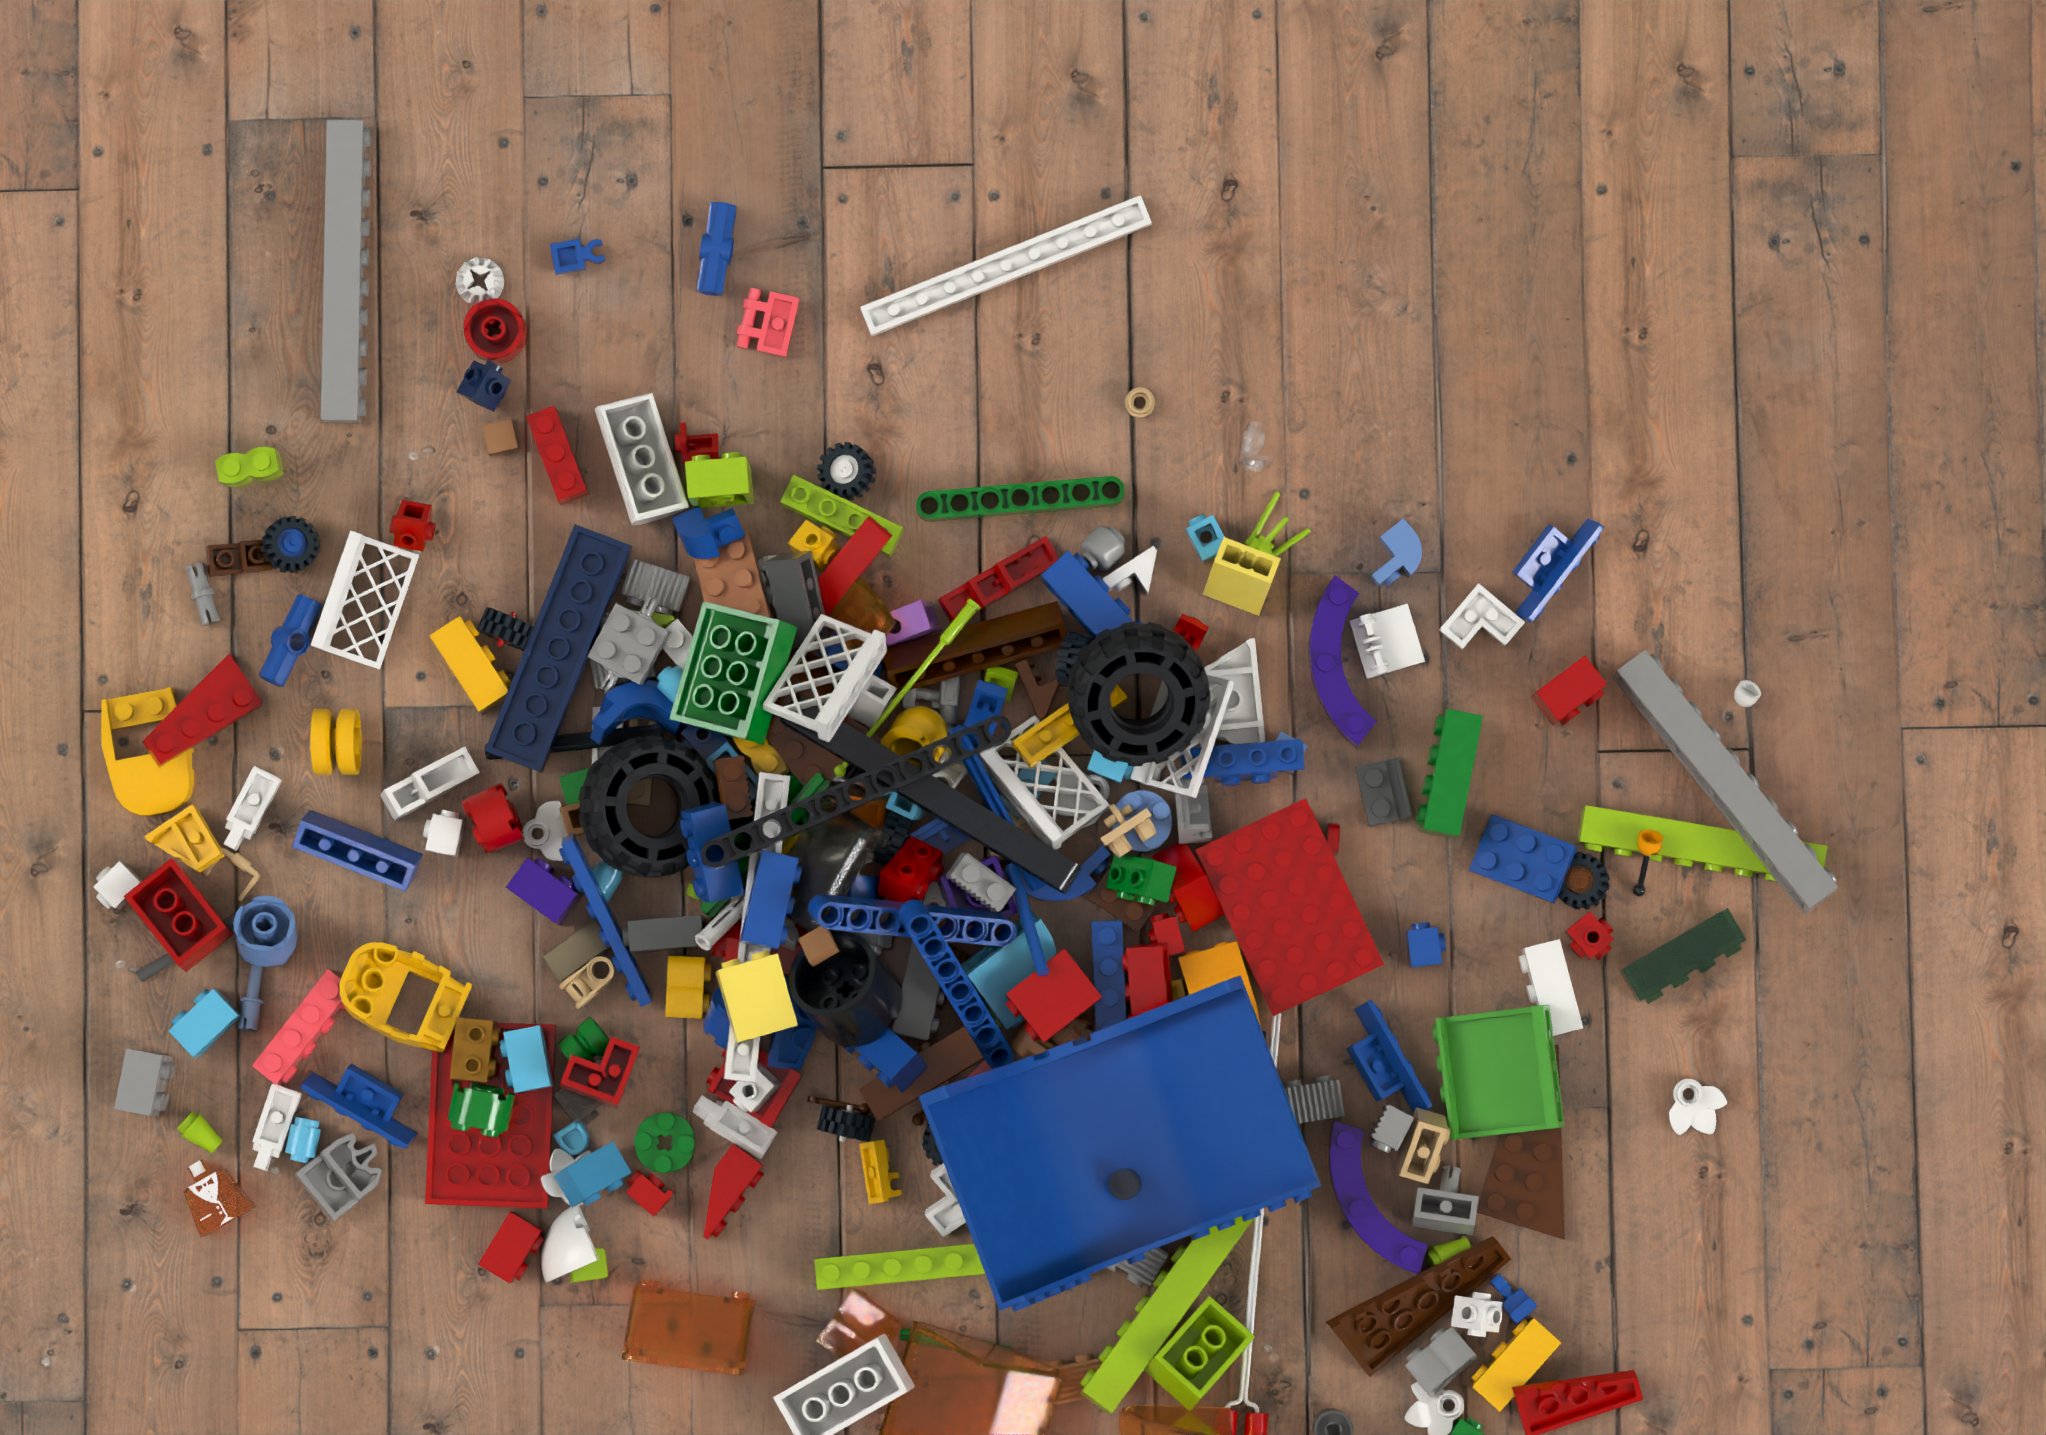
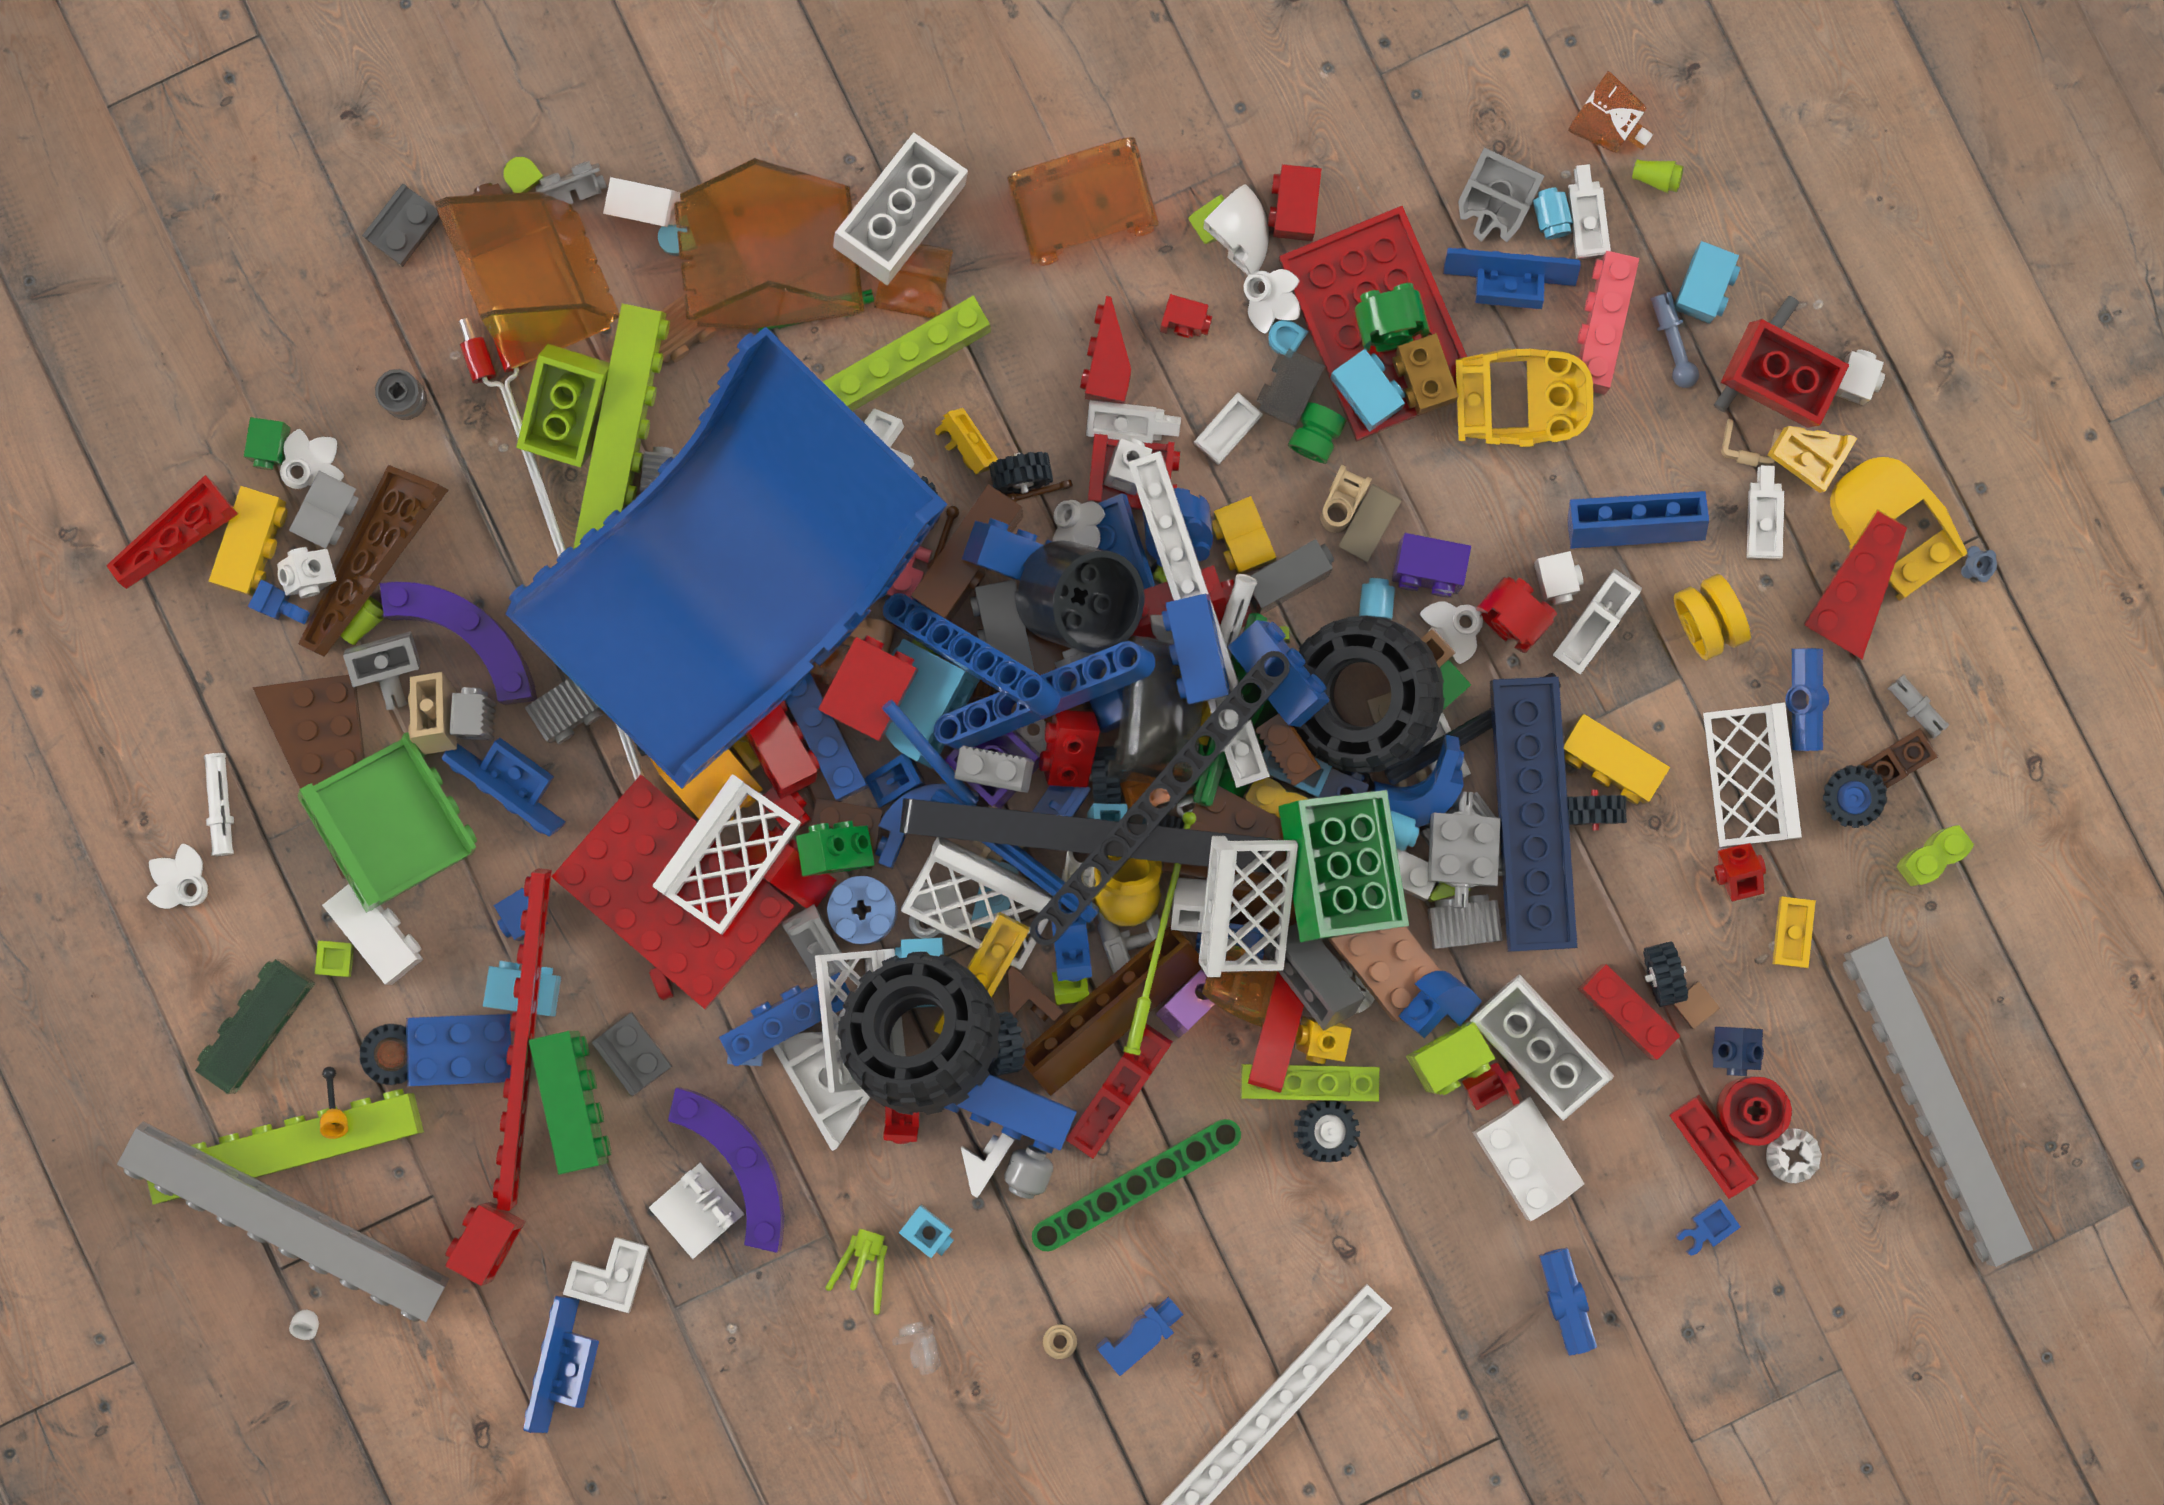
camera: 155 degrees right, 0 degrees up
(91, 681) = (1987, 564): none -> sand blue plate
(144, 1082) = (1737, 194): light grey brick -> none
(265, 931) = (1705, 405): medium blue brick -> none
(392, 458) = (1793, 932): none -> yellow plate
(513, 471) = (1665, 974): none -> black wheel
(540, 317) = (1714, 1146): none -> red plate
(592, 1175) = (1248, 307): dark azure brick -> none
(600, 909) = (1366, 570): blue plate -> none
(602, 1081) = (1279, 399): red brick -> none
(657, 1084) = (1228, 428): none -> white tile
(665, 1125) = (1210, 366): green plate -> none
(693, 375) = (1528, 1159): none -> white slope
(756, 996) = (1165, 545): light yellow brick -> none
(776, 326) = (1469, 1253): coral plate -> none
(818, 945) = (1126, 624): medium nougat tile -> none
(819, 1053) = (1078, 522): none -> white plate
(1067, 917) = (894, 780): none -> blue slope
(1071, 375) = (1141, 1337): none -> blue hips
(1125, 1184) = (711, 534): clear smoke tile -> none
(1140, 823) = (861, 904): tan hips -> none
(1241, 576) = (872, 1207): light yellow brick -> none
(1244, 935) = (702, 838): none -> white fence
(1405, 551) = (719, 1313): medium blue brick -> none
(1449, 884) = (501, 987): none -> medium azure brick
(1459, 852) = (523, 1024): none -> red plate
(1578, 935) = (367, 1006): red brick -> none
(1593, 981) = (334, 958): none -> lime plate
(1634, 1154) = (218, 804): none -> white pin

